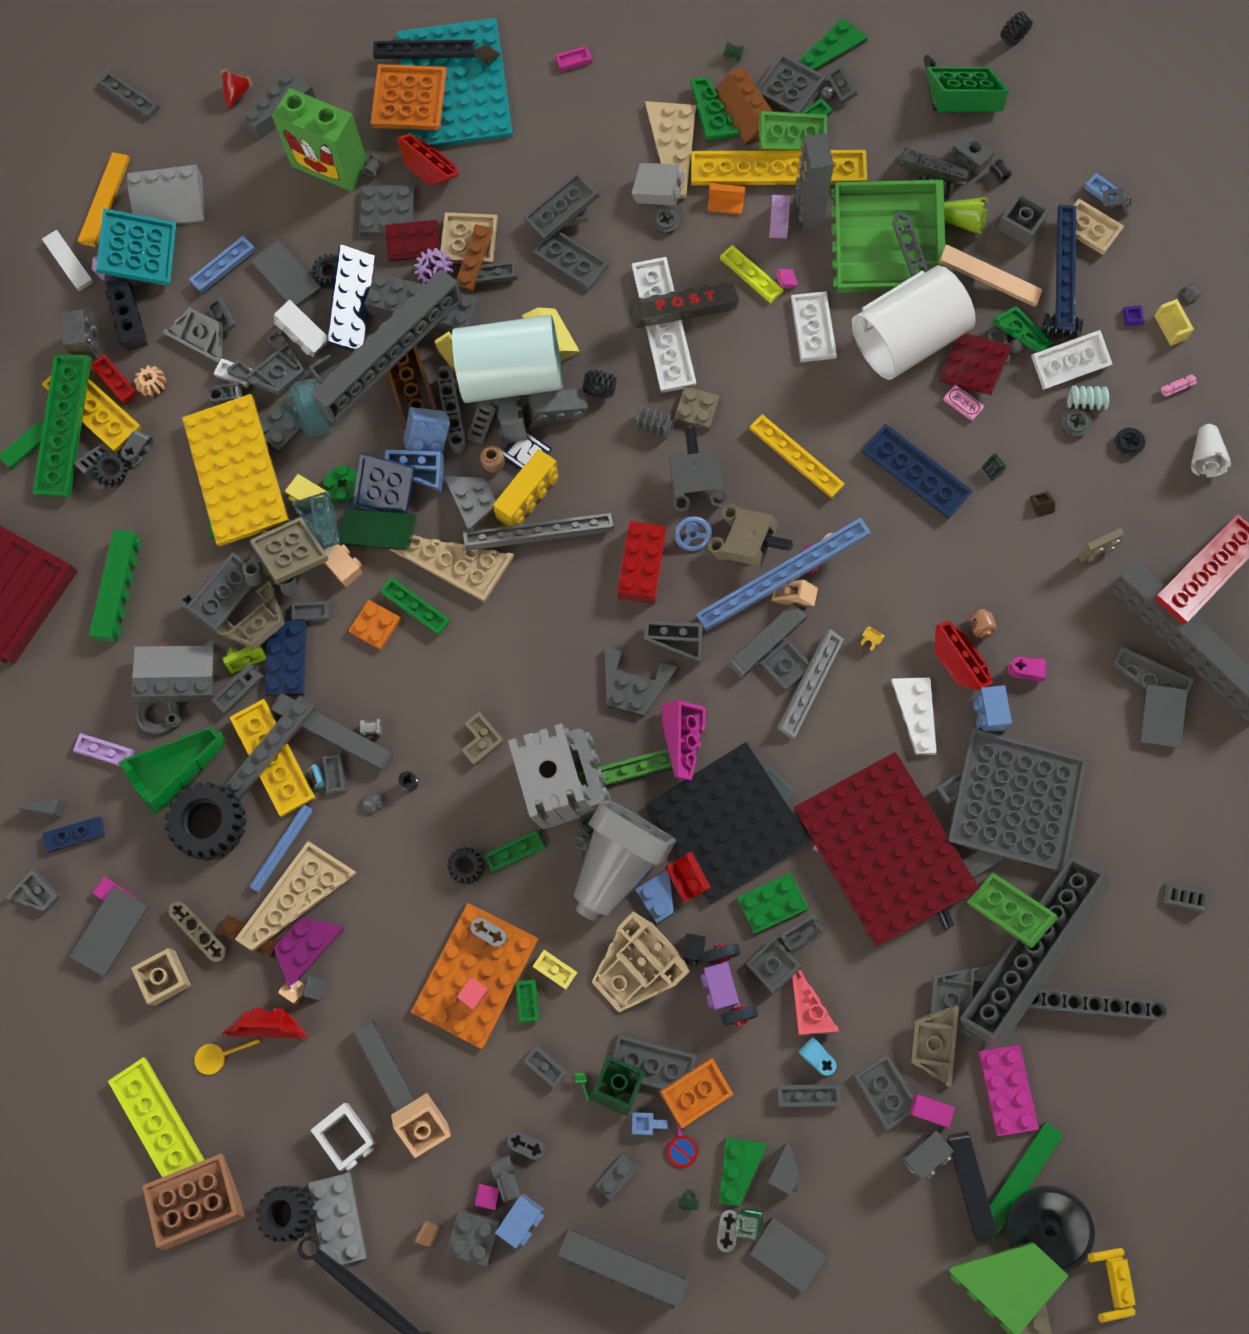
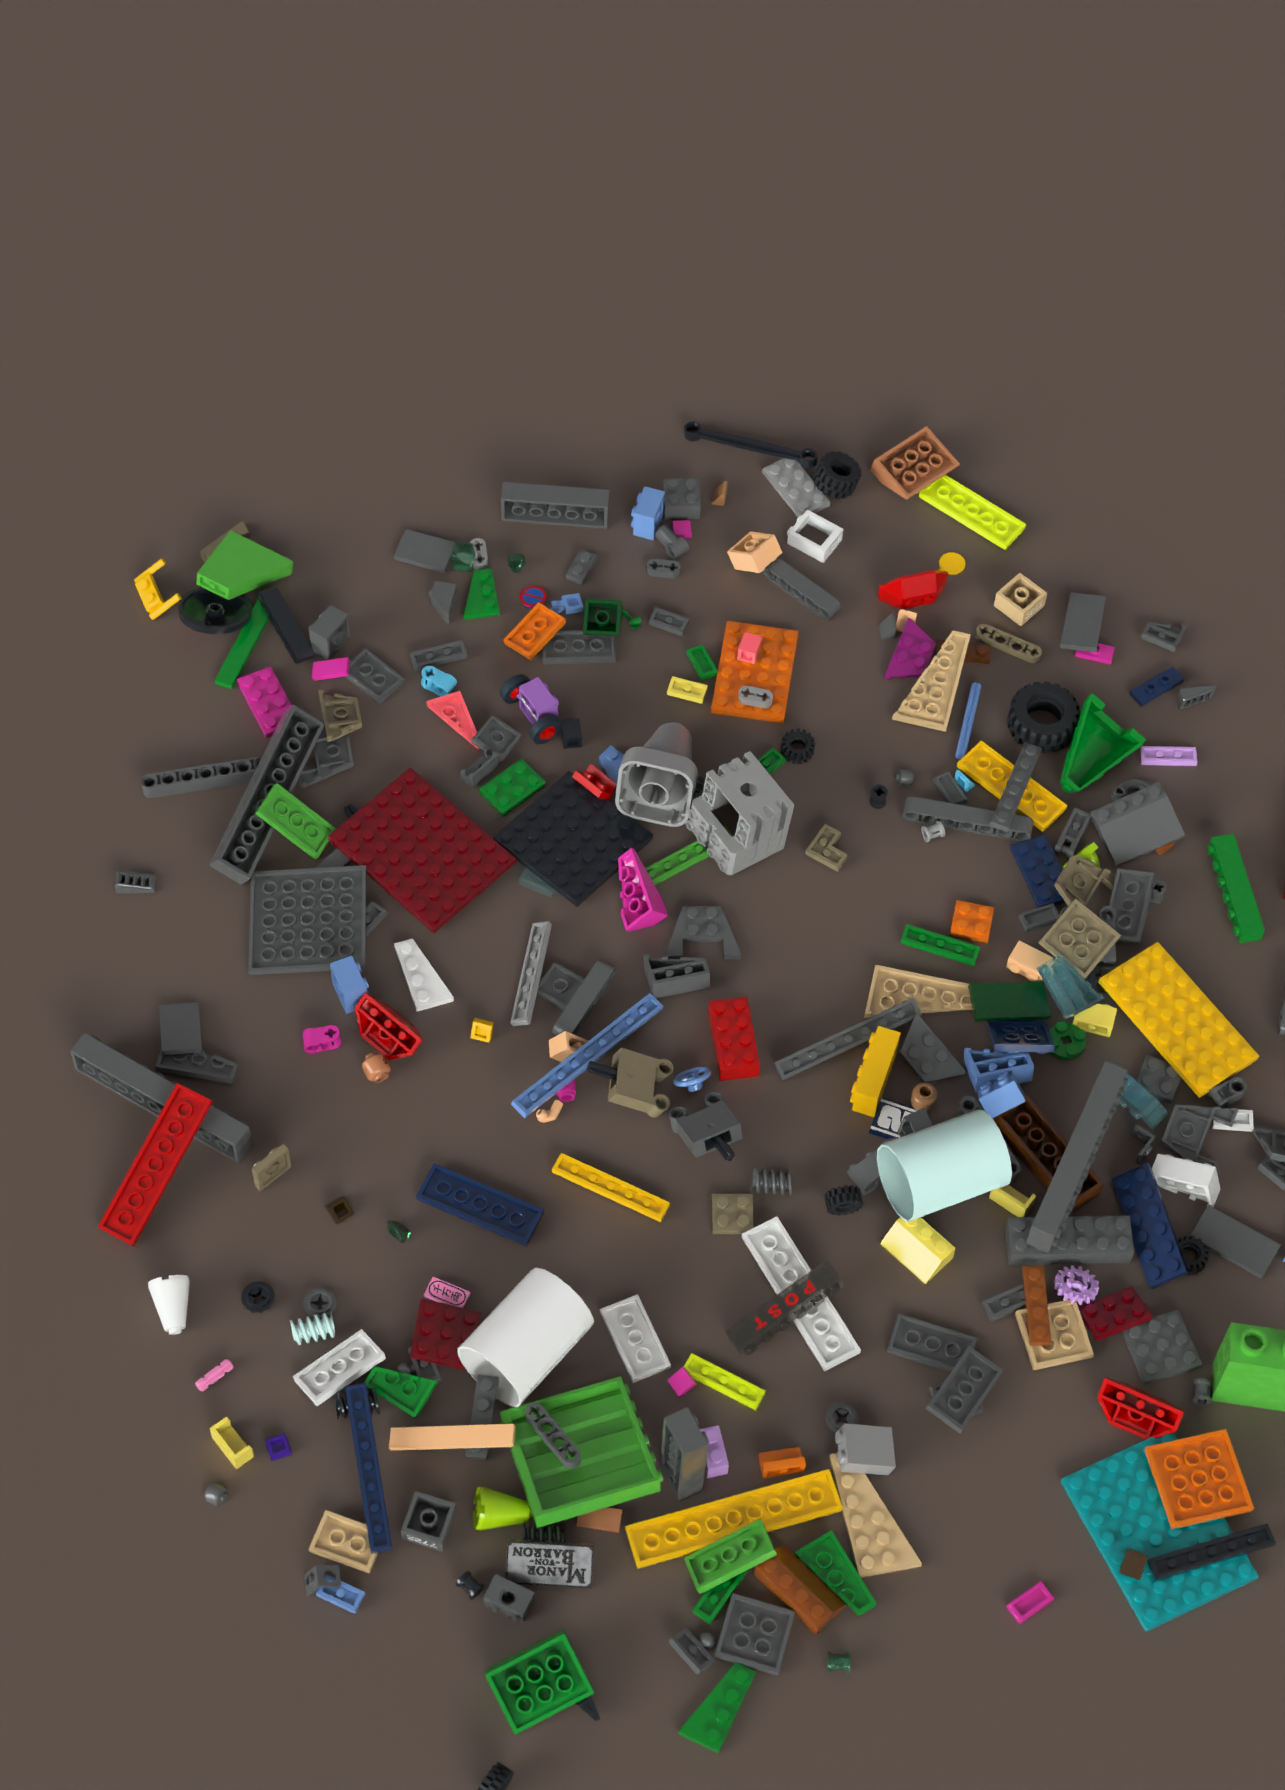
camera: 155 degrees right, 15 degrees down
(638, 964) = (614, 709): tan wedge -> none

